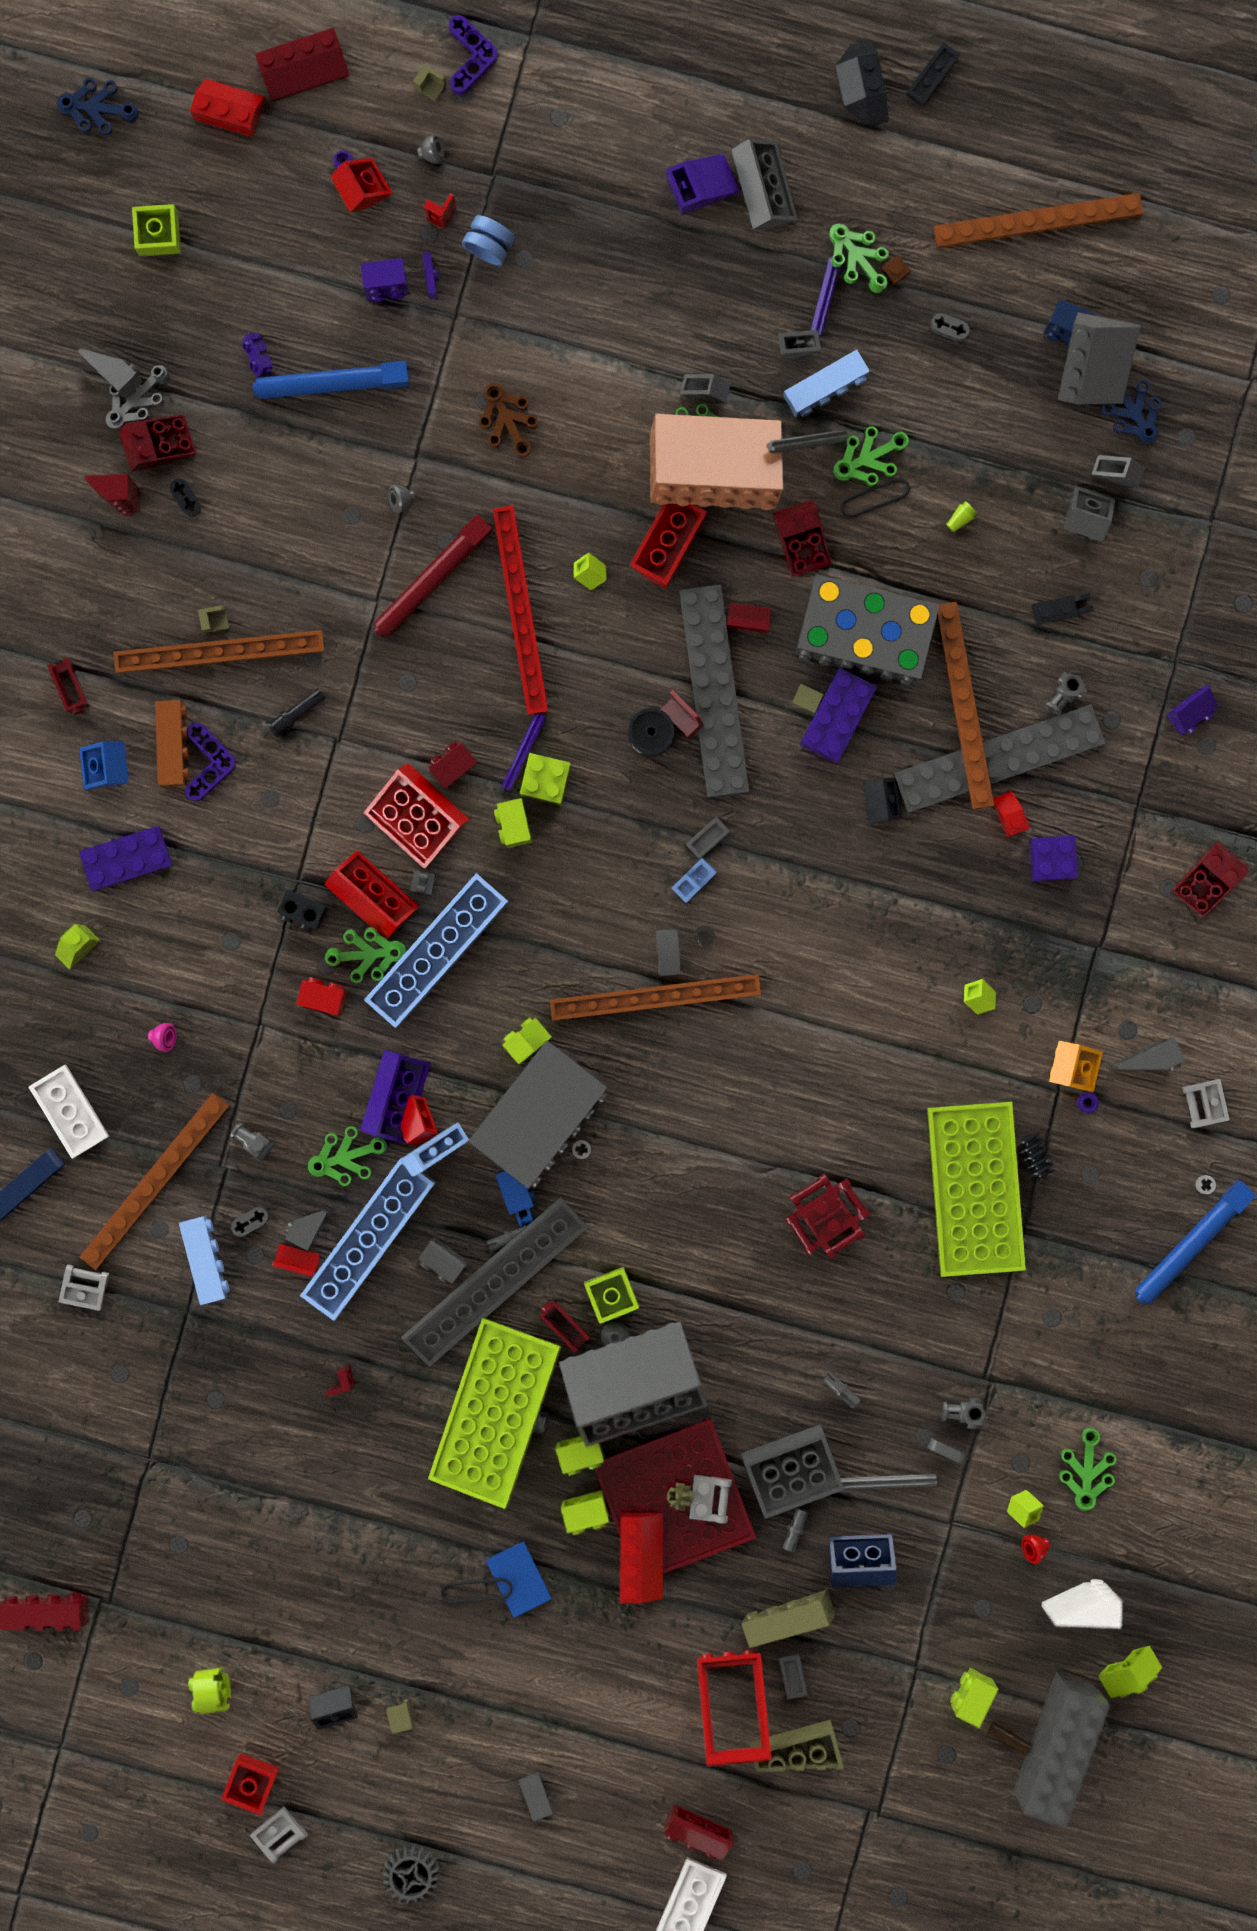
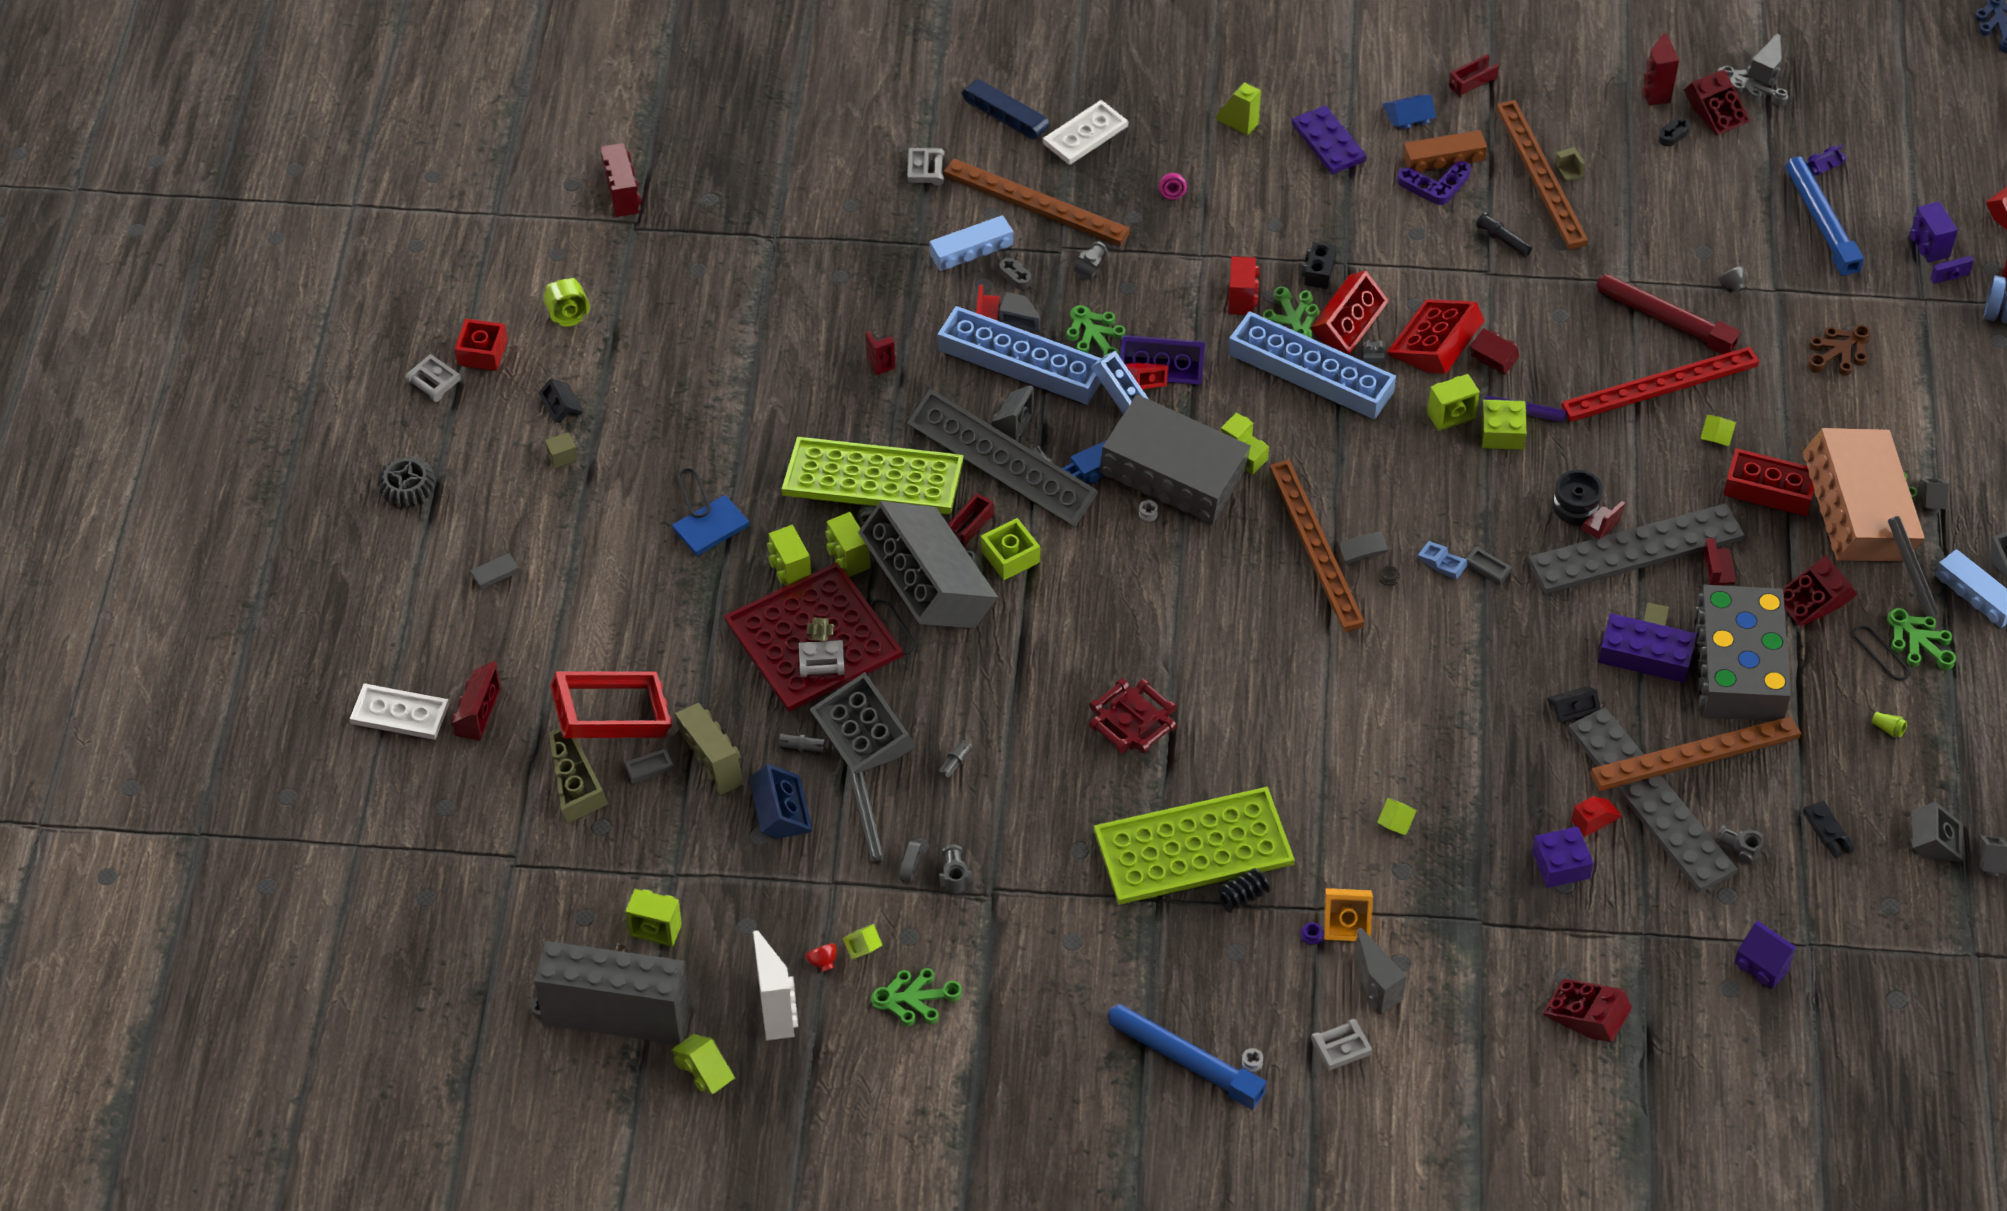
camera: 80 degrees right, 35 degrees down
(156, 230) = (1908, 71): lime brick -> none
(641, 1557) = (752, 607): red slope -> none

